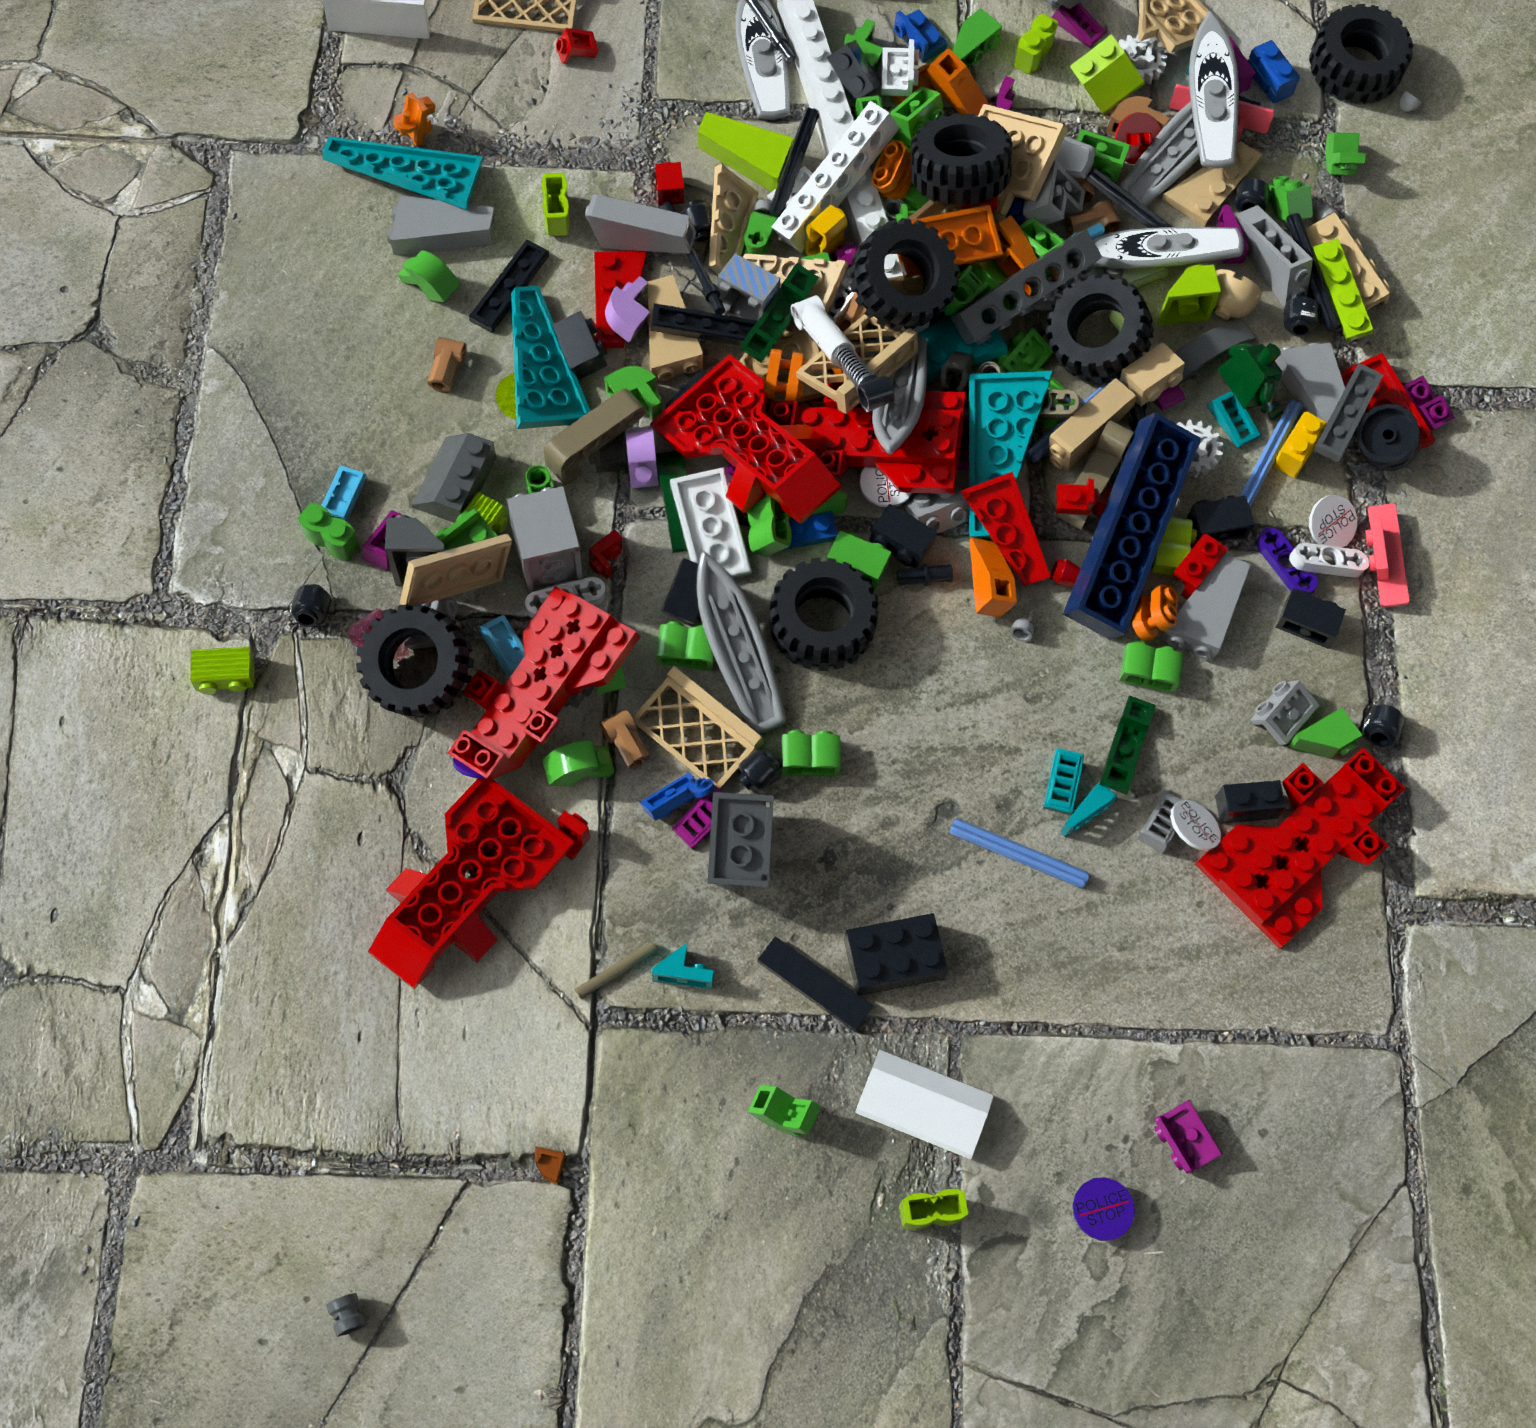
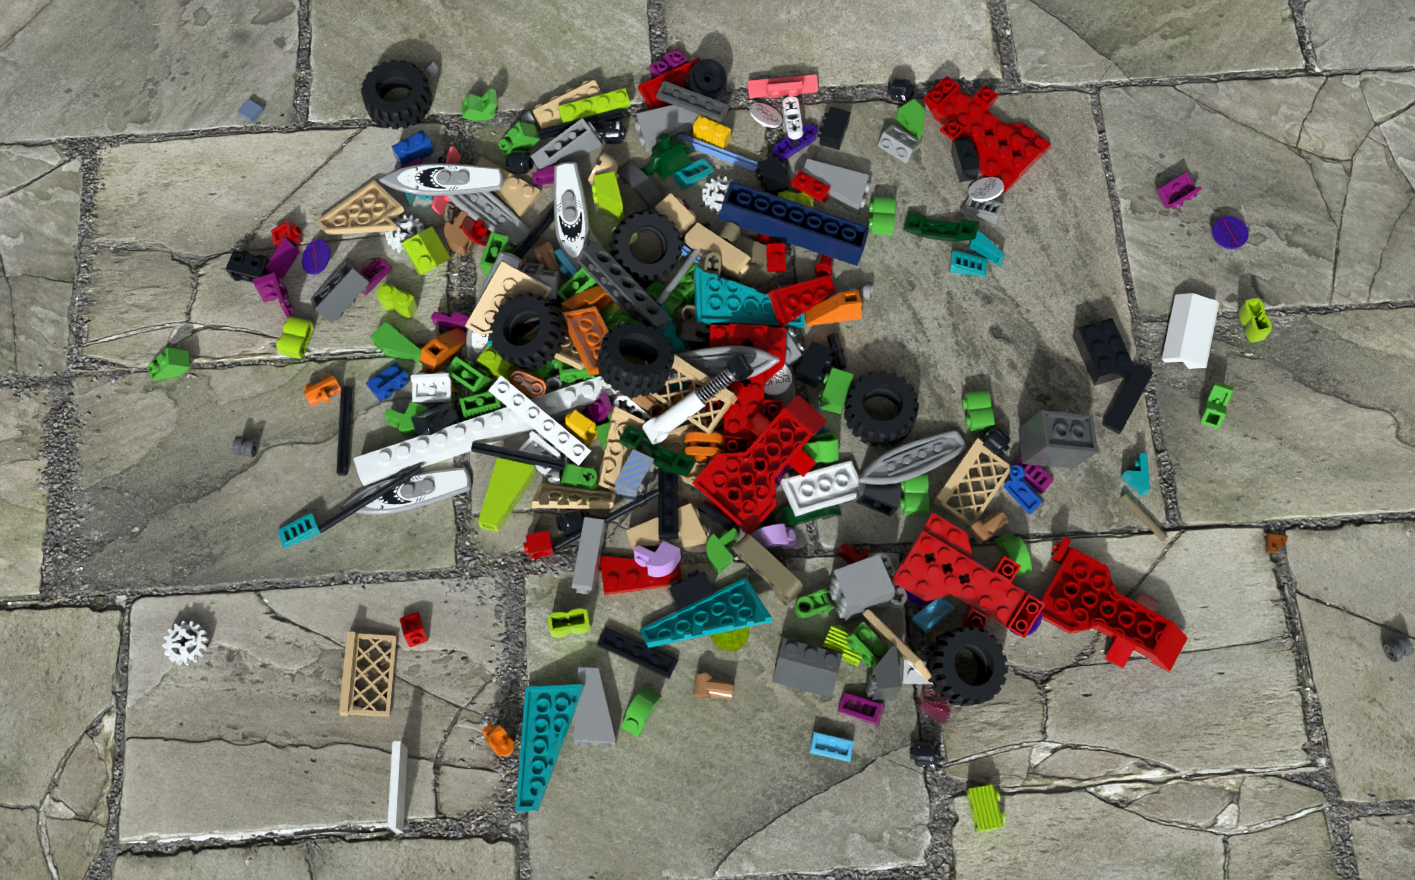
camera: 90 degrees left, 0 degrees up
(328, 532) = (868, 746): bright green brick -> none
(1019, 853) = (1019, 288): medium blue axle -> none
(1044, 365) = (676, 279): none -> light grey bar
(1155, 612) = (855, 204): orange brick -> none

